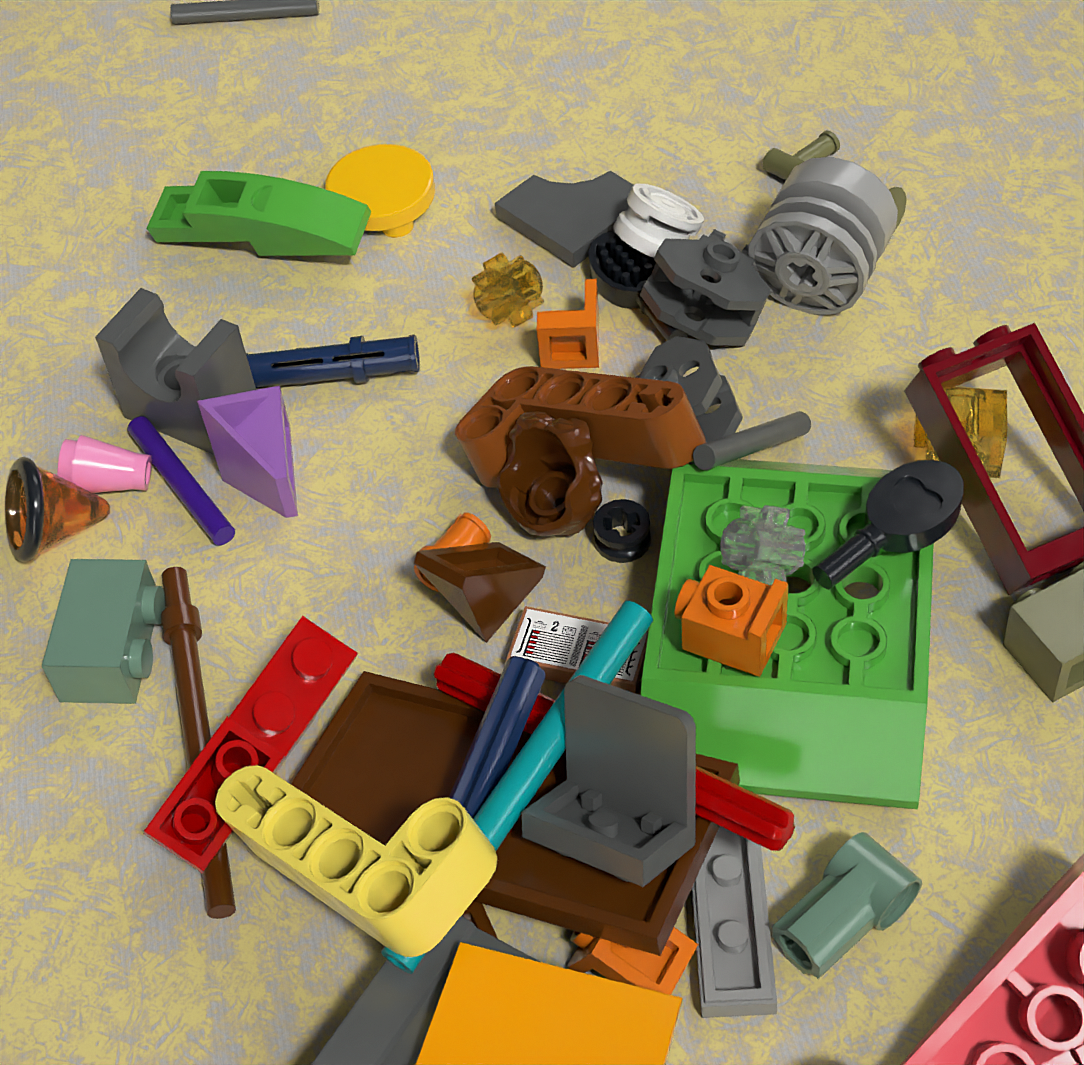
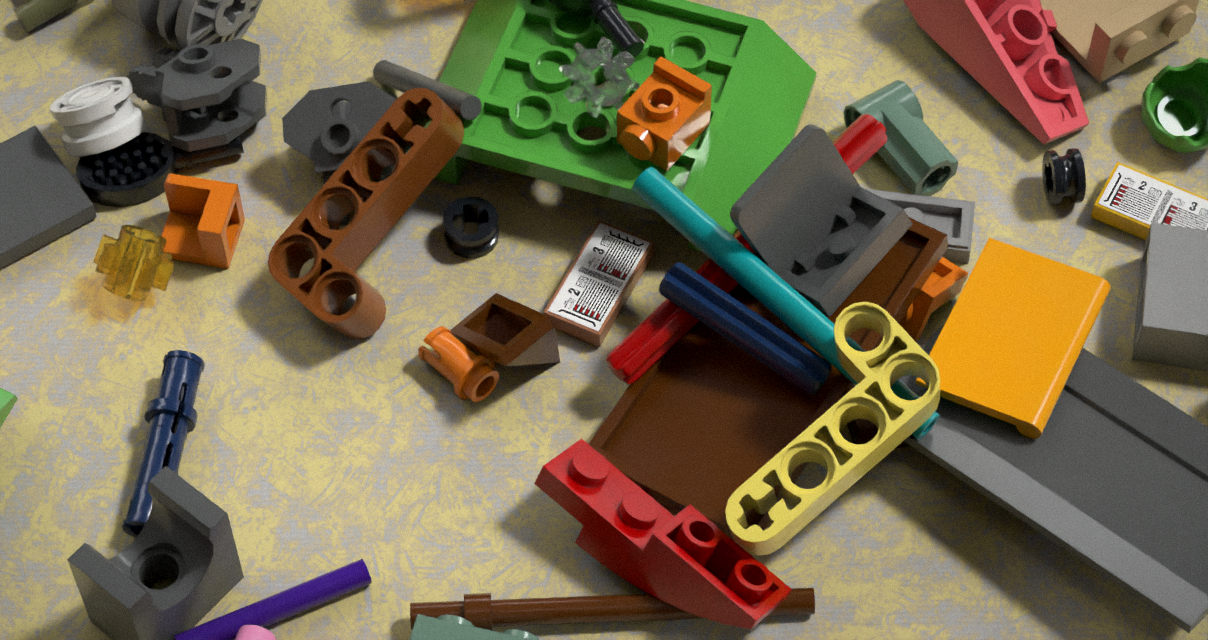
camera: 85 degrees left, 5 degrees up
(254, 446) = (283, 512): medium lavender slope -> none
(550, 475) = (405, 238): reddish brown hair -> none

